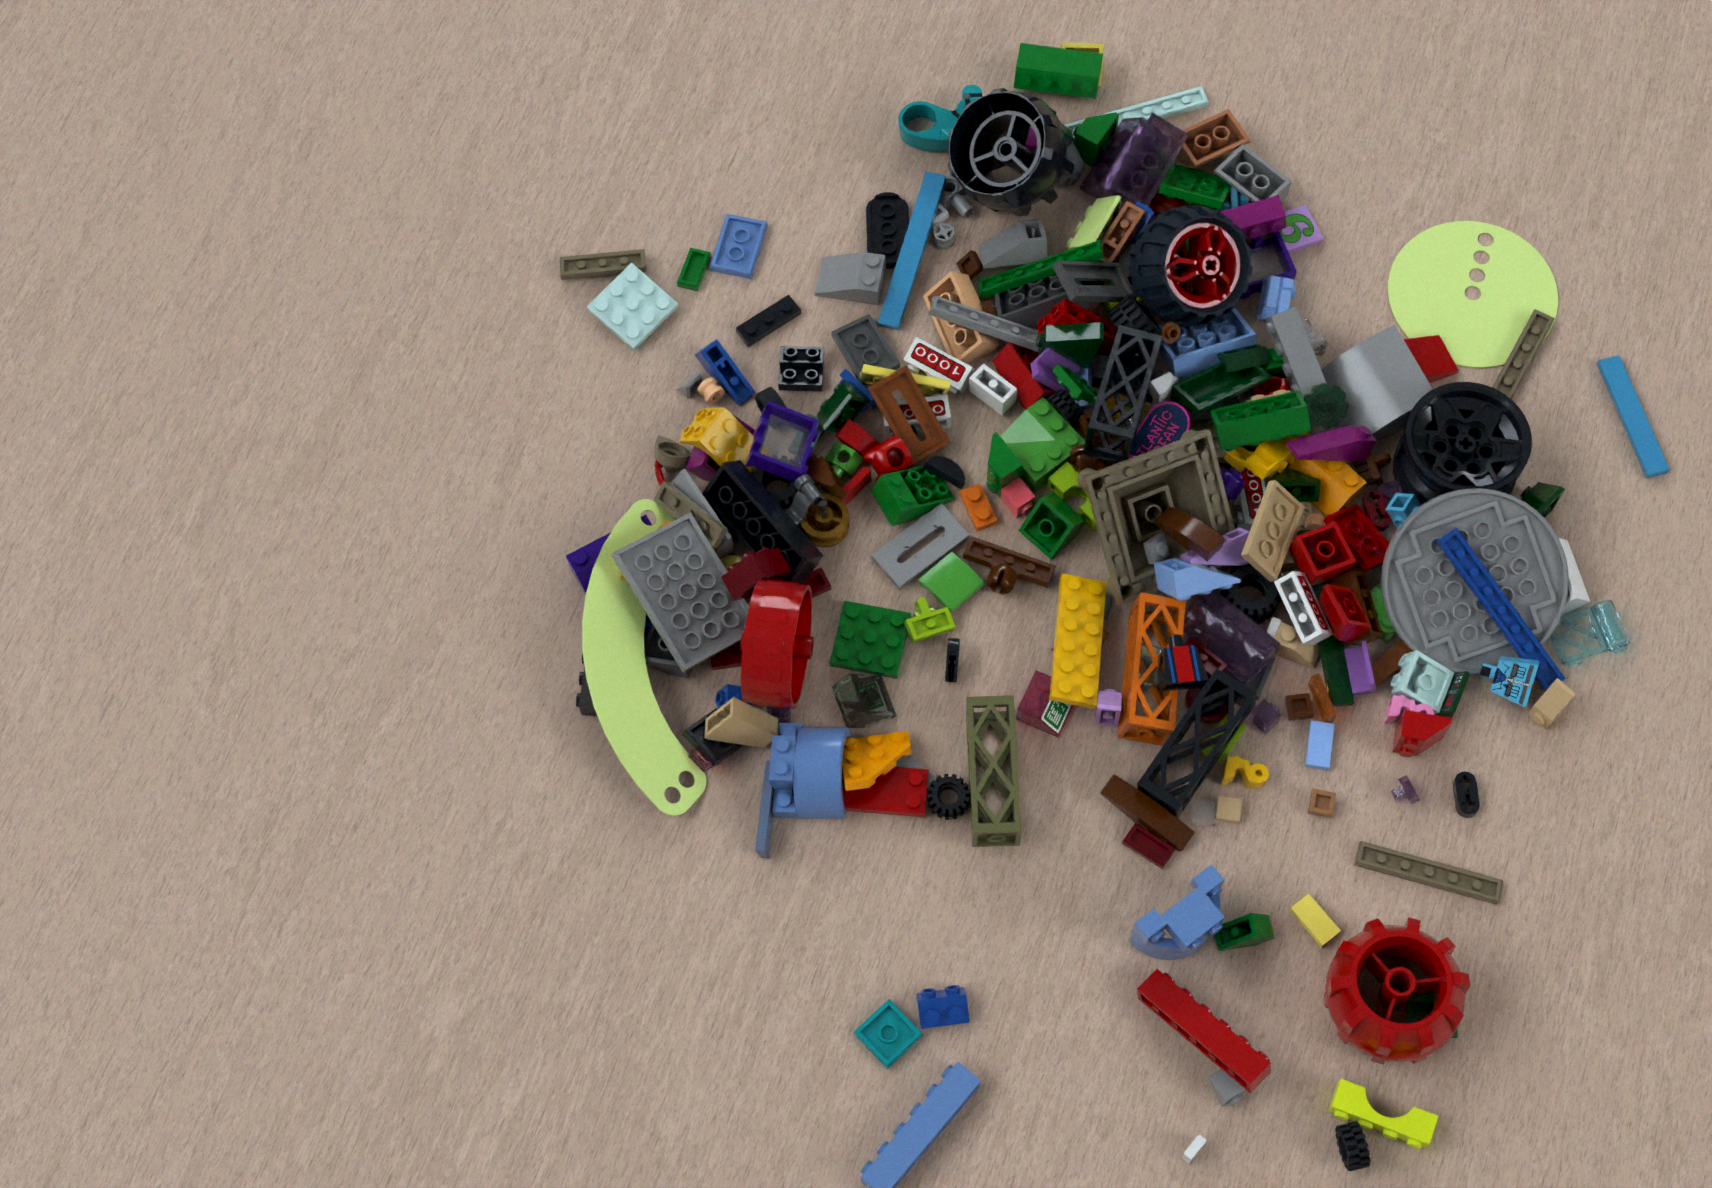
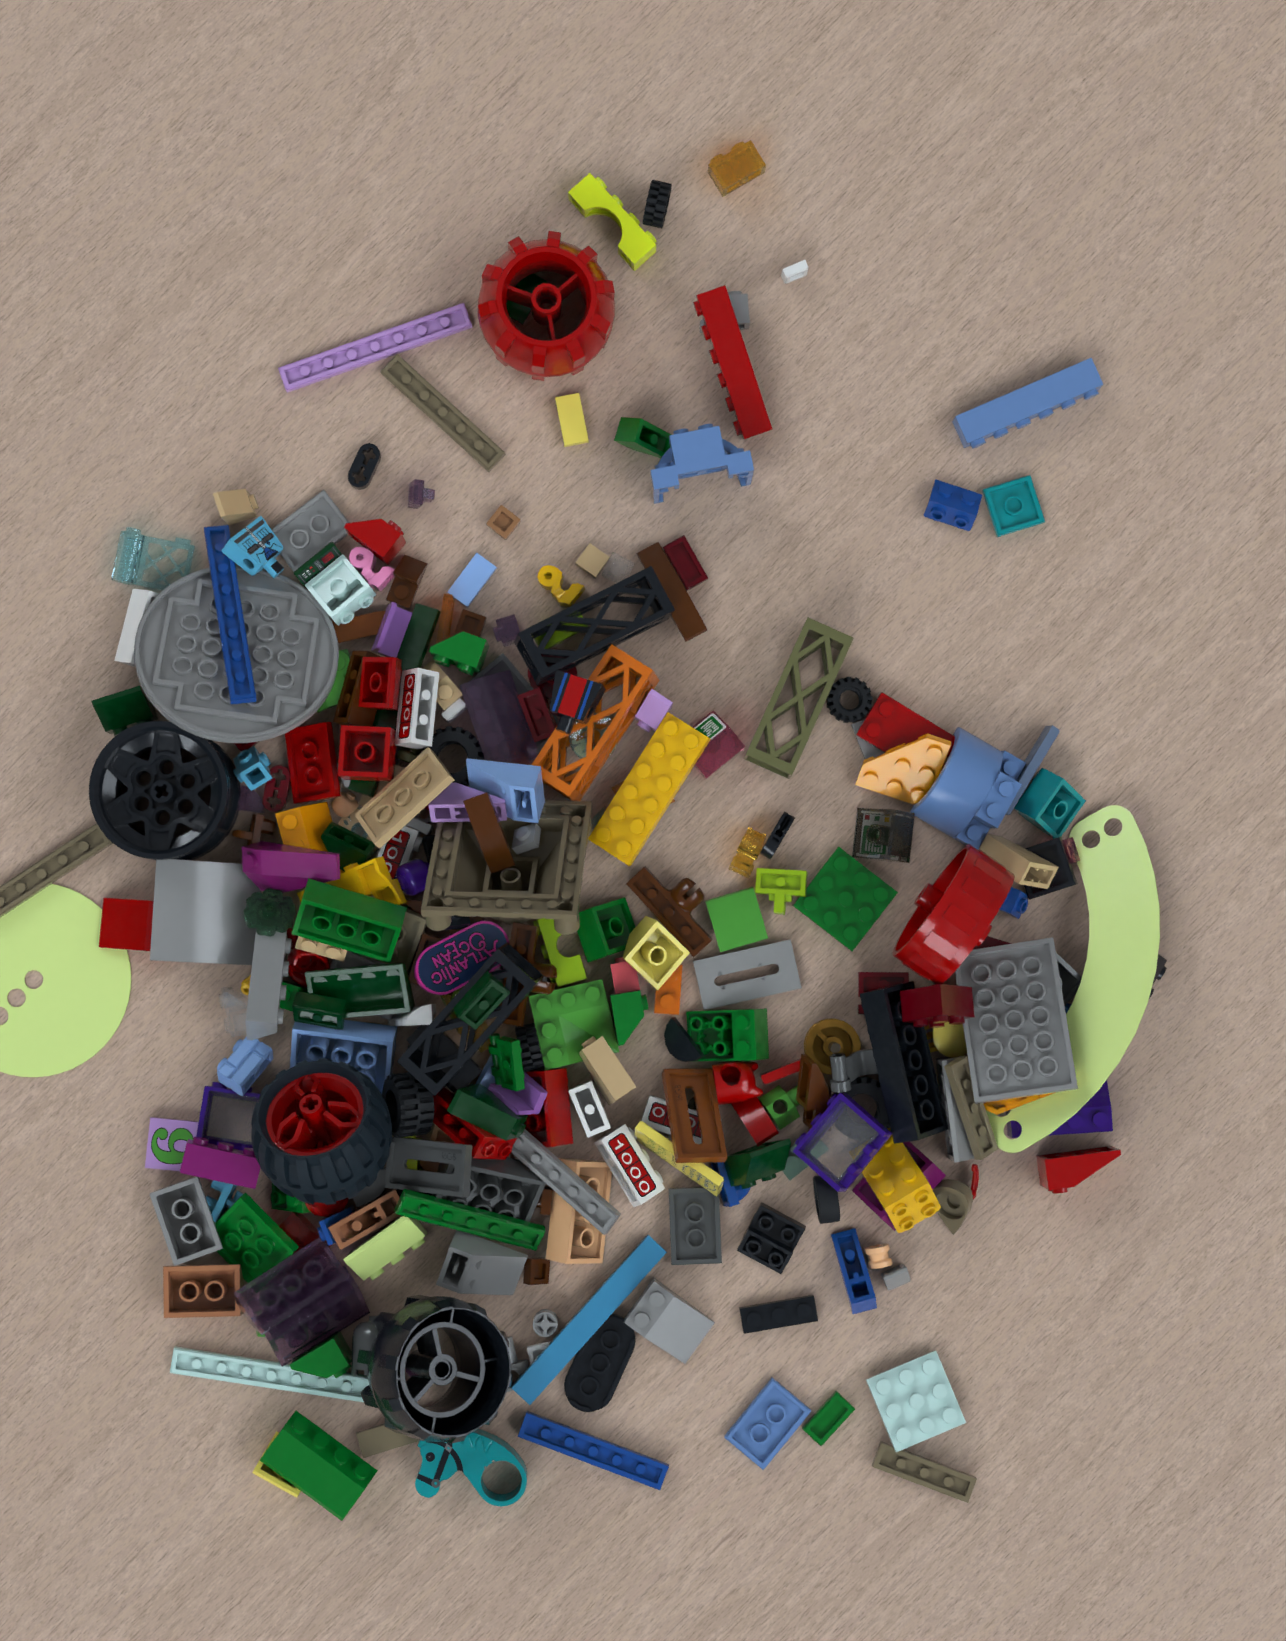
camera: 160 degrees left, 20 degrees up
(587, 517) = (1070, 1168): none -> red slope
(735, 790) = (1050, 803): none -> teal slope
(861, 171) = (593, 1450): none -> blue plate
(969, 637) = (747, 852): none -> clear yellow leg
(994, 416) = (606, 1069): none -> tan slope
(1006, 522) = (654, 952): none -> light yellow slope
(1123, 397) = (481, 1000): none -> dark green slope
(1170, 332) = (378, 1076): dark orange plate -> none
(1292, 674) = (463, 651): none -> green slope
(1373, 718) = (406, 581): none -> reddish brown slope
(1477, 720) = (310, 530): none -> light grey tile
(1520, 900) = (375, 347): none -> lavender tile

